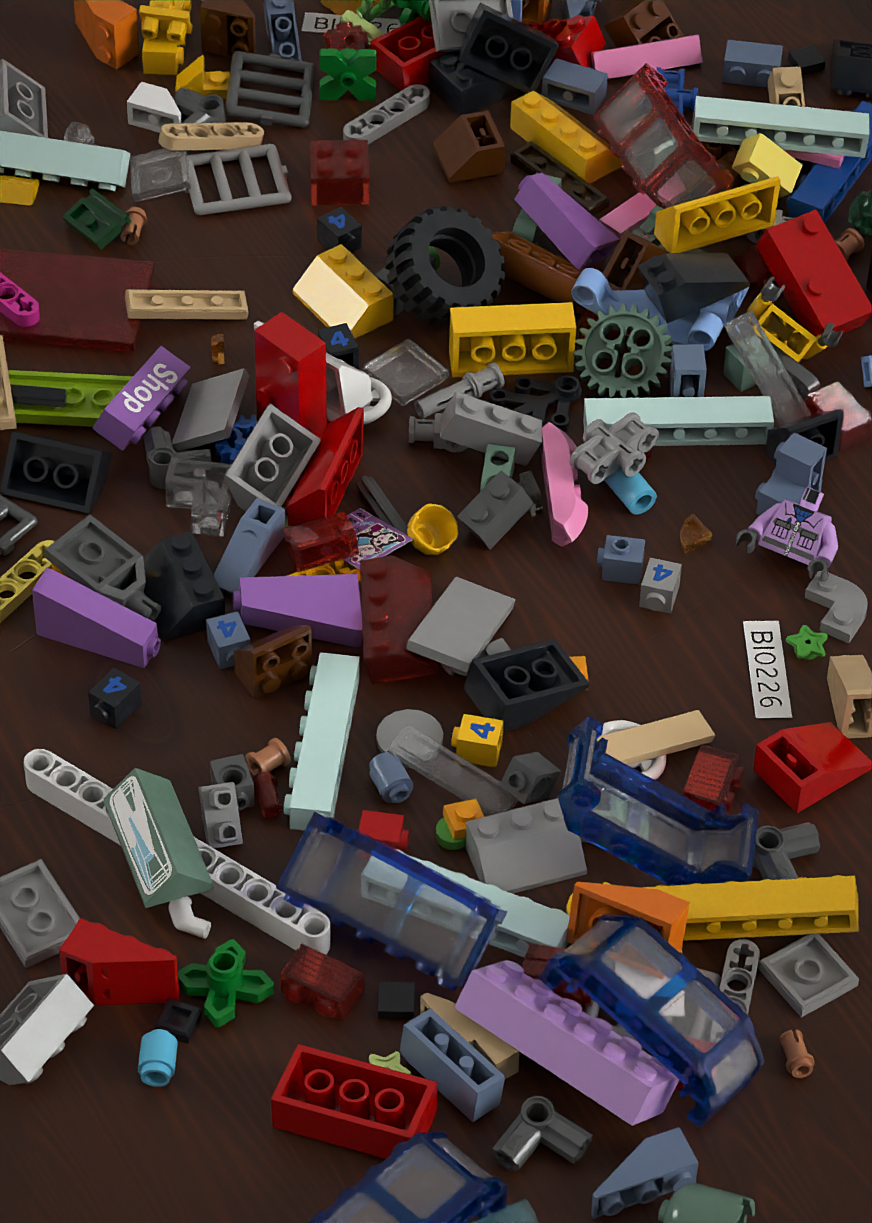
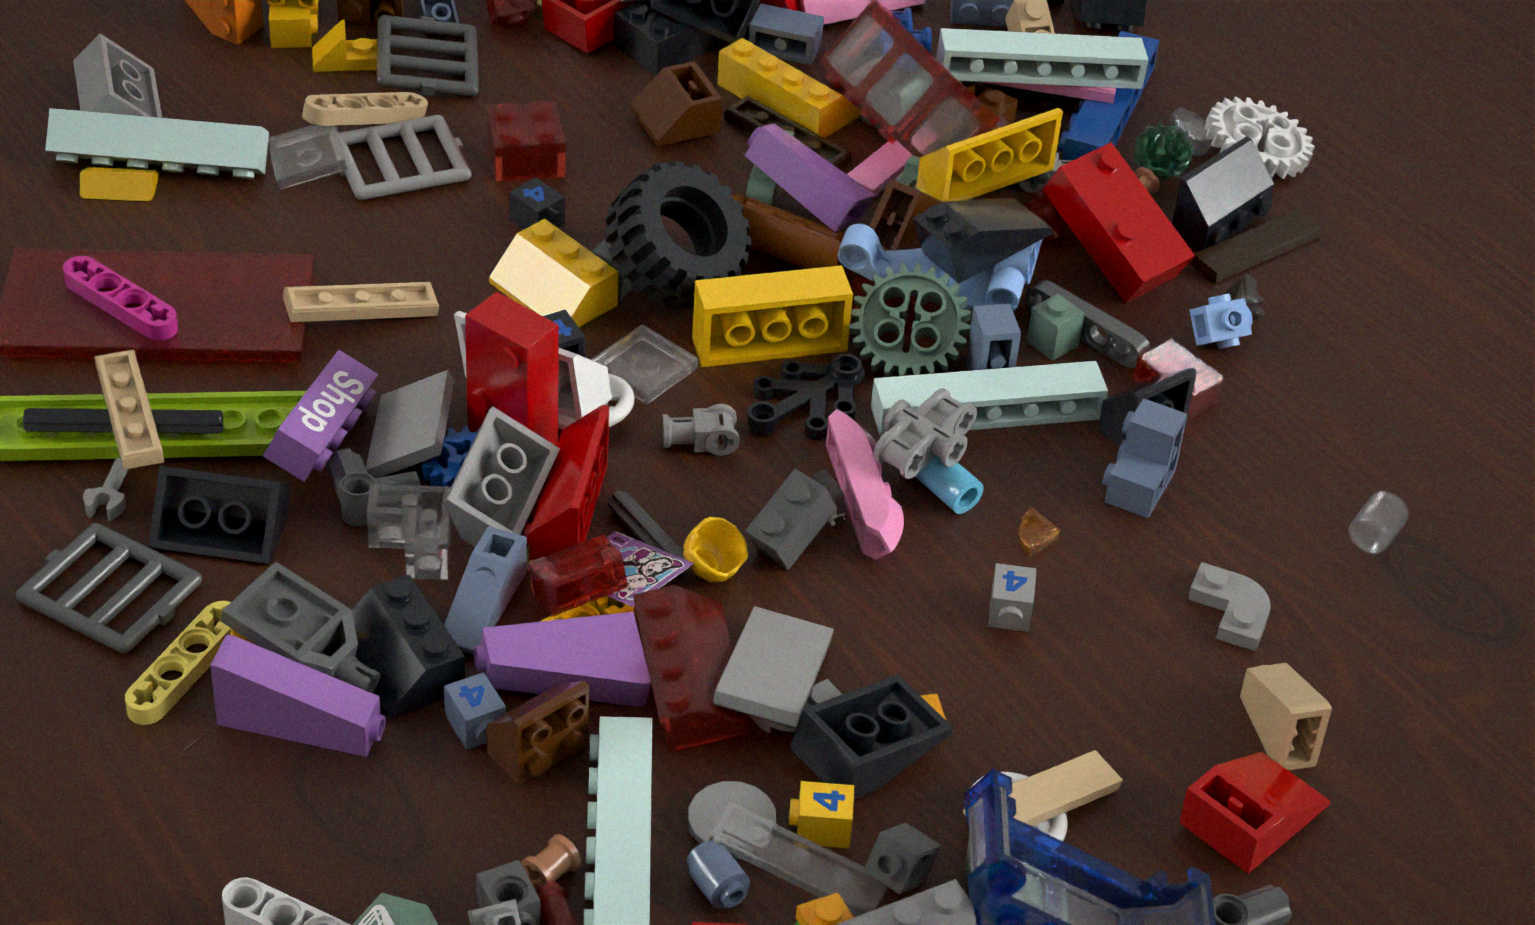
camera: 10 degrees left, 5 degrees down
(79, 133) = (201, 112): clear tile -> none
(96, 219) = (235, 210): dark green plate -> none
(114, 698) = (334, 800): black brick -> none
(138, 220) = (282, 210): nougat pin -> none
(152, 107) = (287, 82): white slope -> none
(199, 107) = (345, 78): dark grey piece -> none
(218, 349) = (407, 351): clear orange tile -> none
(348, 71) = (519, 30): green plant -> none
(412, 102) = (595, 59): light grey beam -> none
(471, 384) = (730, 375): light grey pin -> none
(480, 423) = (767, 421): light grey brick -> none
(493, 467) = (778, 471): sand green leg -> none
(621, 559) = (958, 569): sand blue brick -> none
(713, 778) = (1135, 836): clear red brick -> none
(763, 159) = (1027, 94): light yellow brick -> none
(766, 368) = (1085, 327): clear tile -> none
(767, 669) = (1164, 692): white sticker -> none
(786, 332) = (1097, 284): yellow torso -> none
(796, 532) = (1168, 519): torso -> none
(804, 650) = (1204, 663): bright green plate -> none

